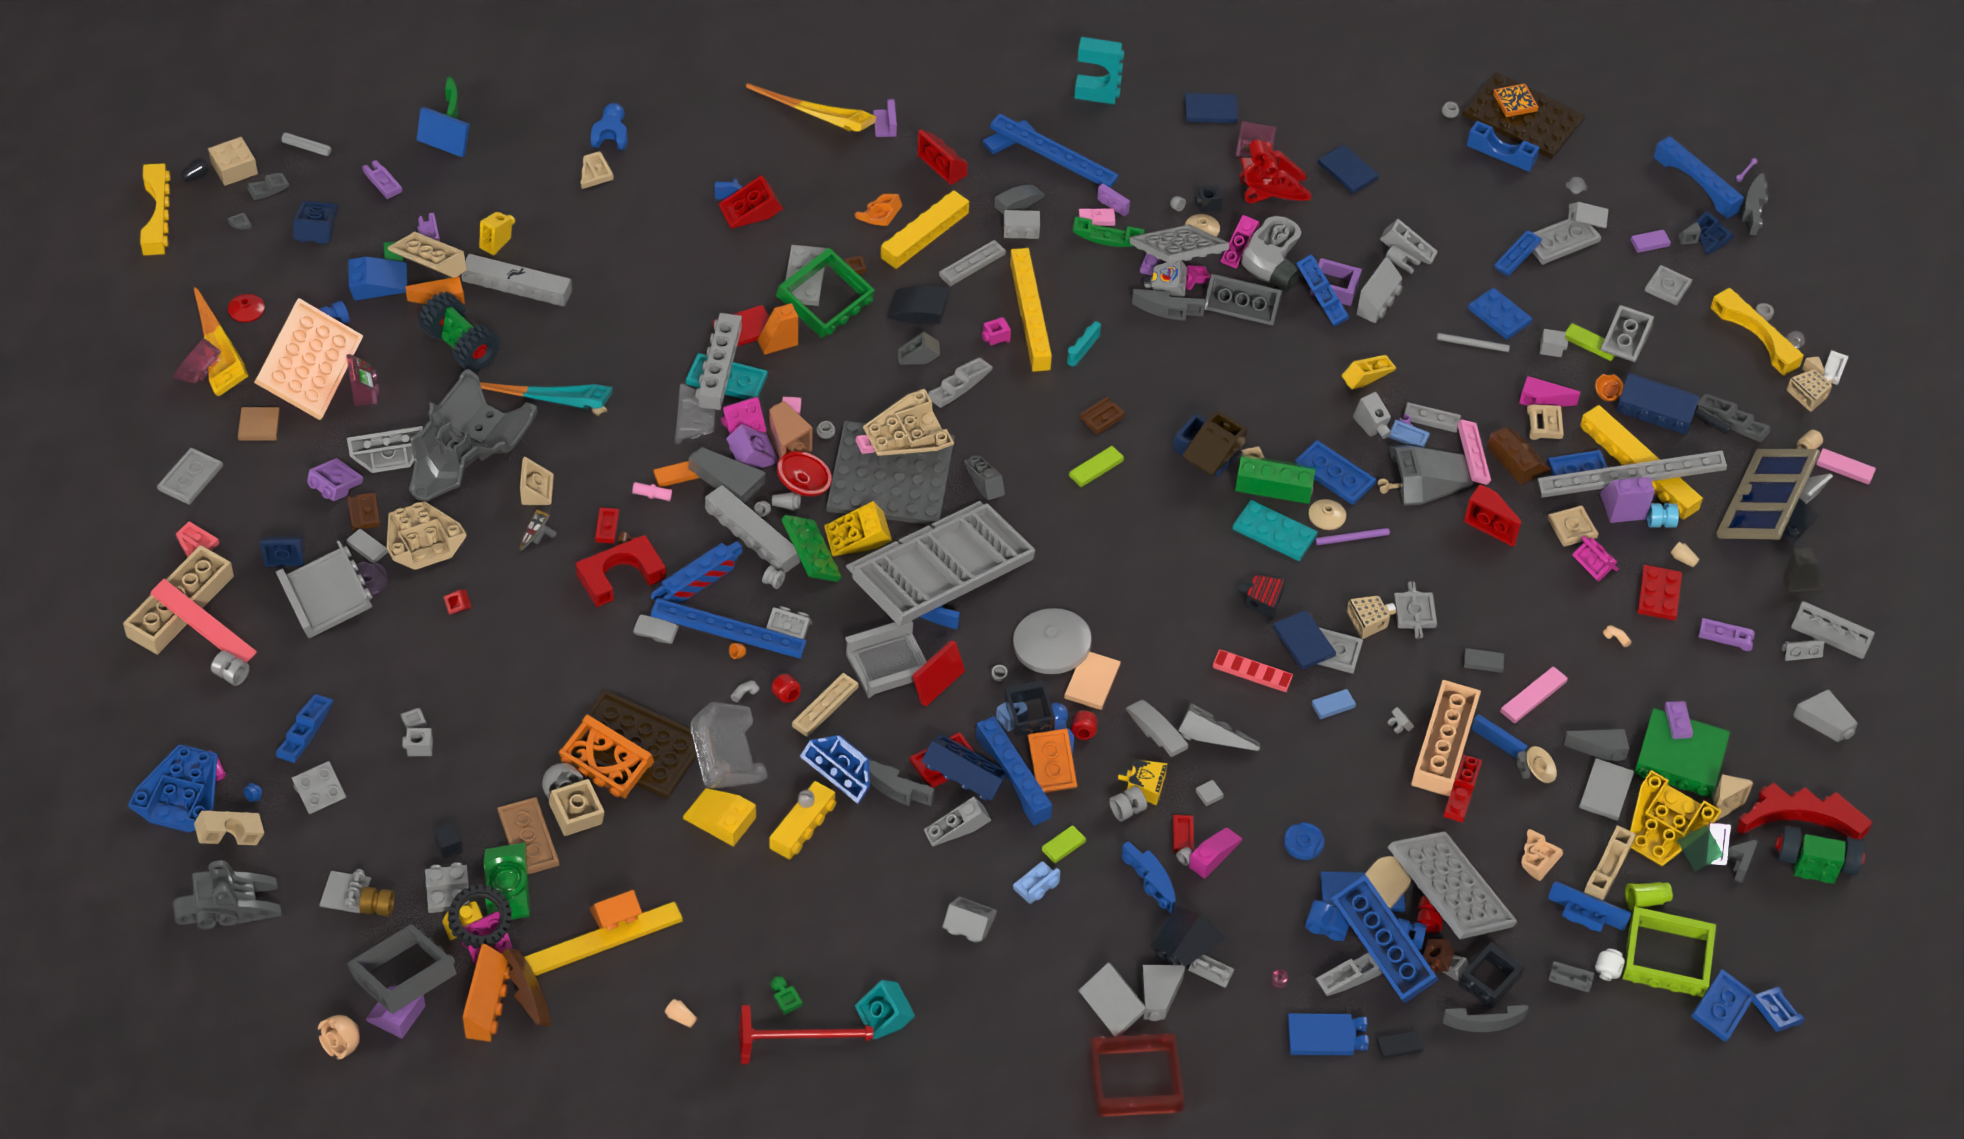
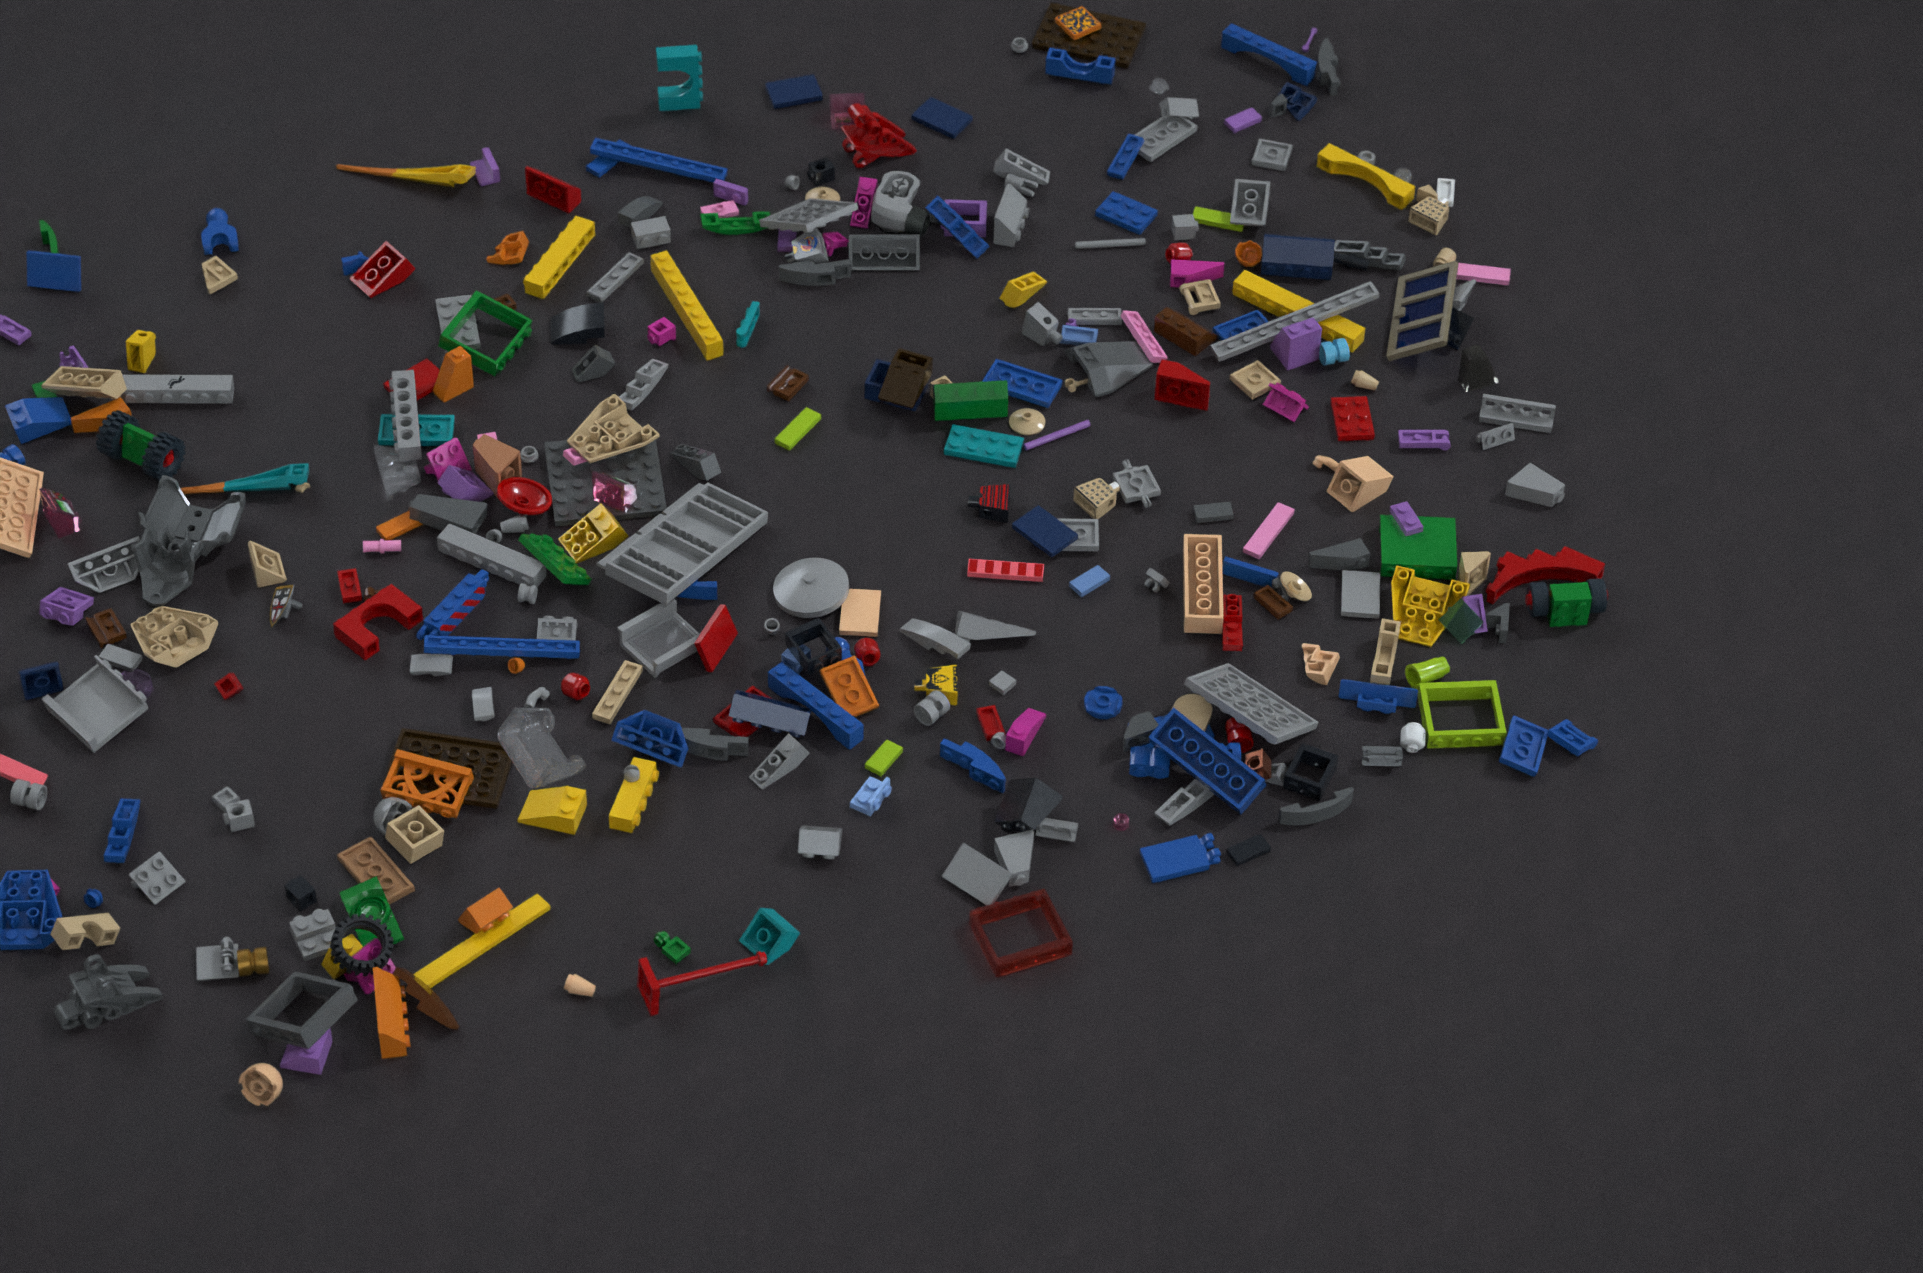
camera: 15 degrees left, 5 degrees down
(691, 684) = (483, 704): none -> light grey slope
(890, 490) = (613, 491): none -> clear pink slope
(1328, 884) = (1139, 730): none -> dark grey slope
(1513, 775) = (1273, 602): none -> reddish brown plate
(1538, 369) = (1178, 251): none -> red head
(1643, 665) = (1358, 482): none -> light nougat slope

